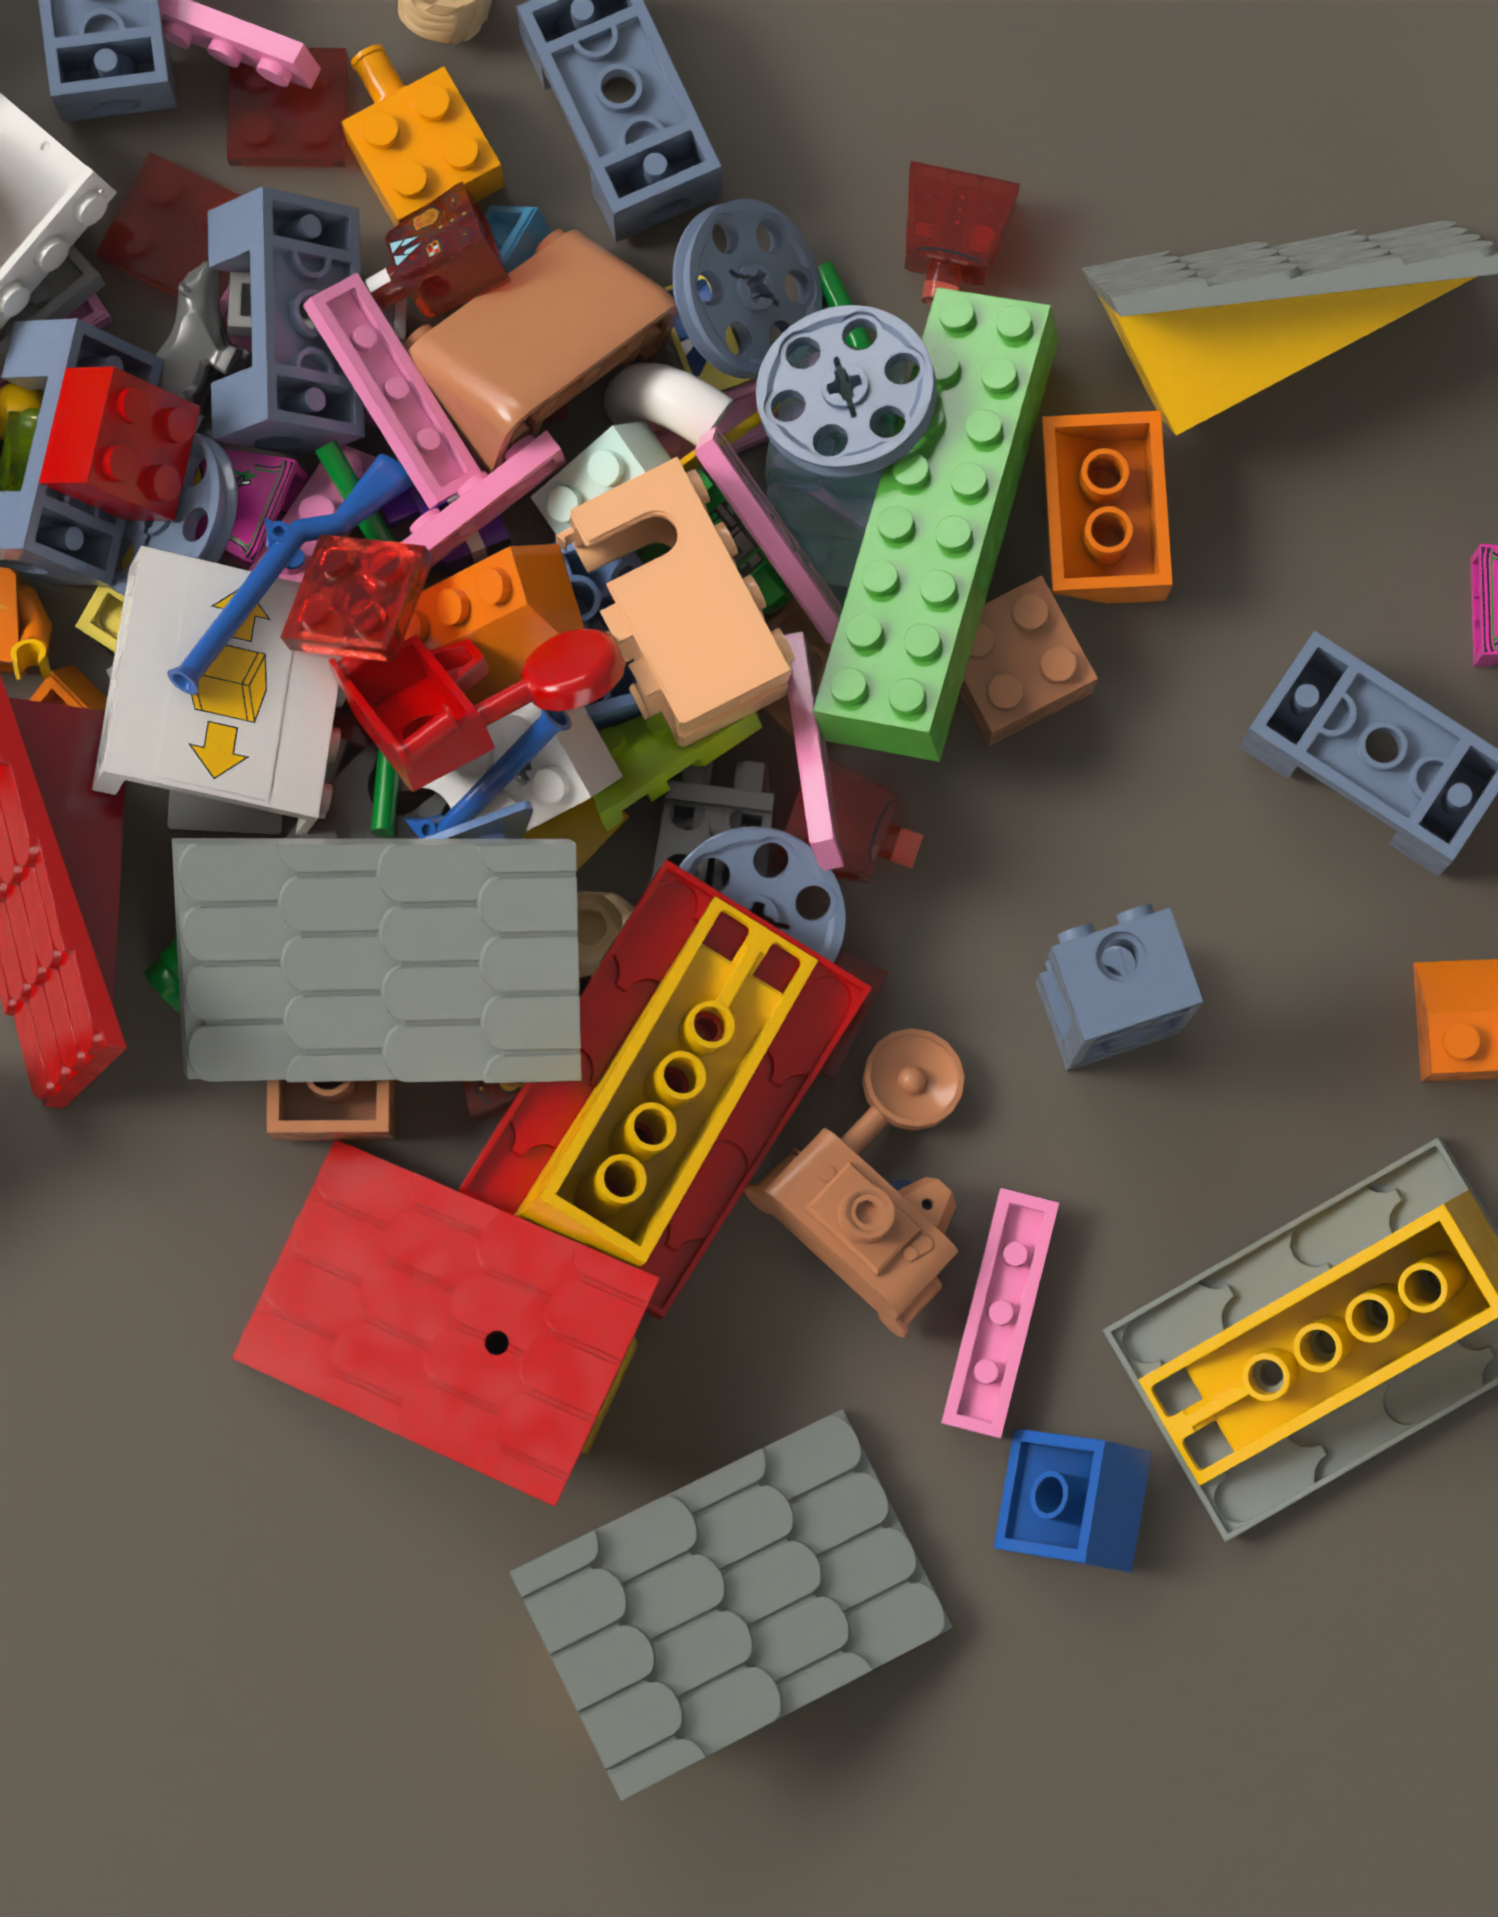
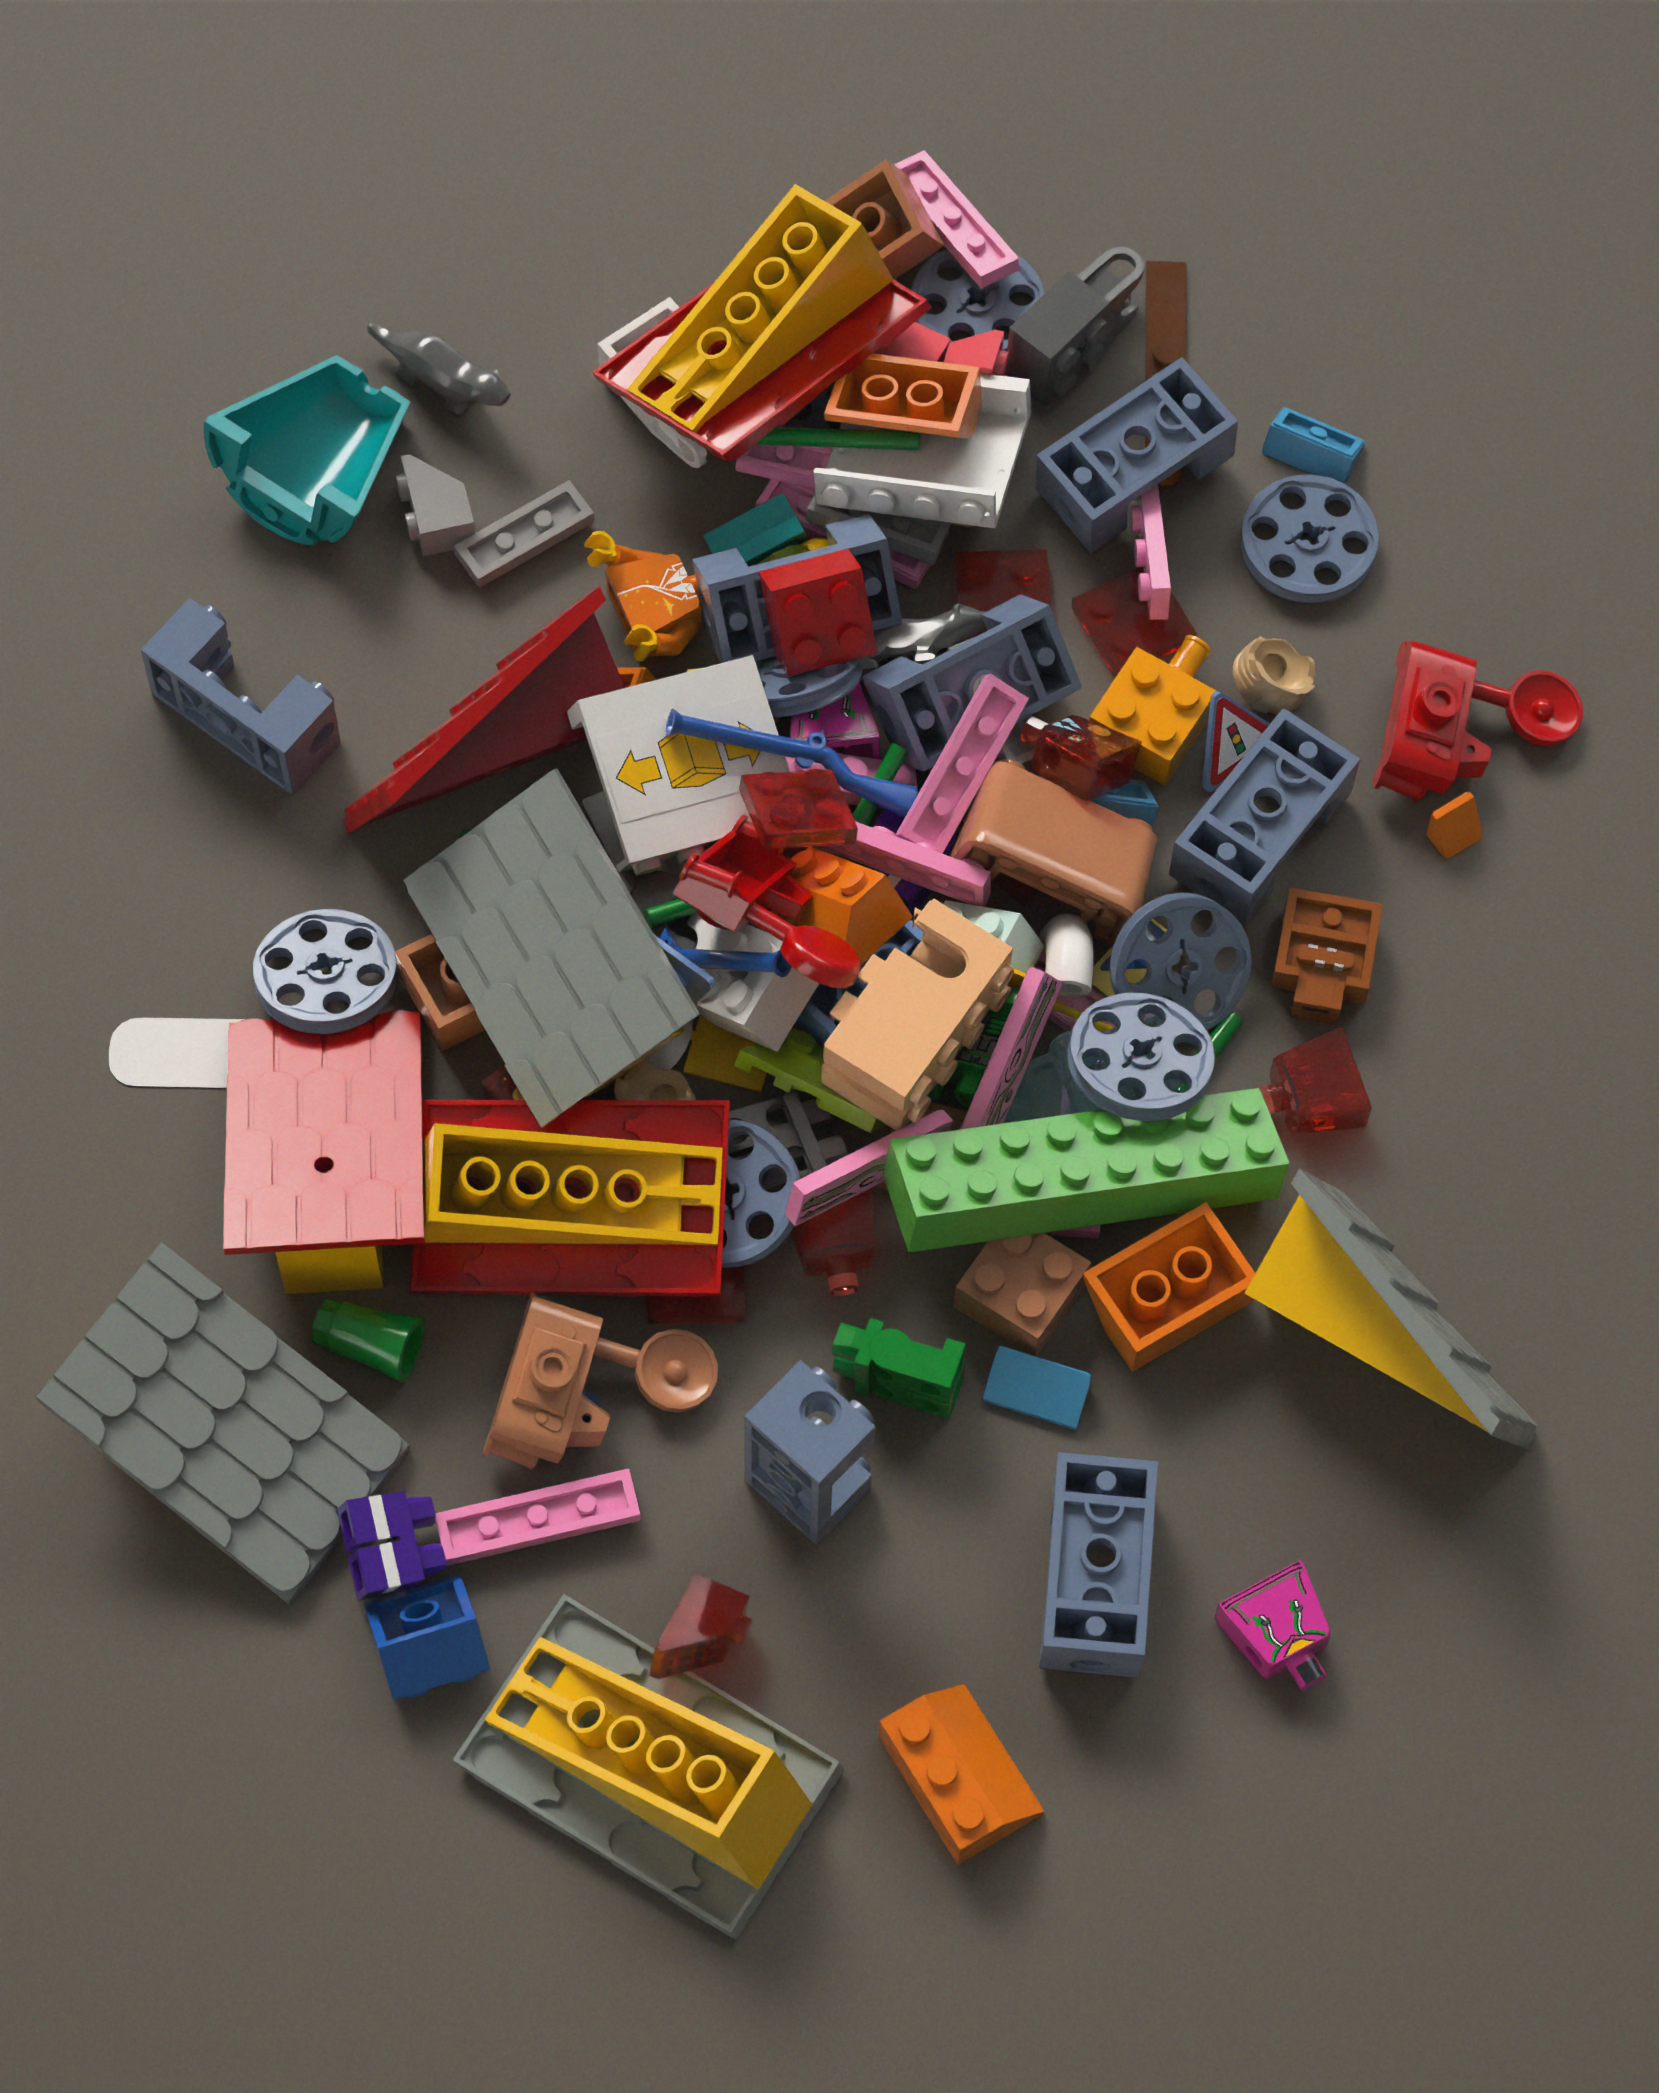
camera: 60 degrees right, 15 degrees down
(215, 1198) = (319, 989): none -> wedge
(227, 1436) = (171, 1052): none -> white sticker
(501, 83) = (1229, 737): none -> piece
(698, 1390) = (370, 1336): none -> green plant
(806, 128) = (1325, 952): none -> dark orange piece
(953, 1494) = (392, 1564): none -> dark purple hips
(1047, 840) = (900, 1367): none -> green hips
(1133, 709) = (1037, 1387): none -> dark azure slope
(1222, 1202) = (701, 1628): none -> clear red slope

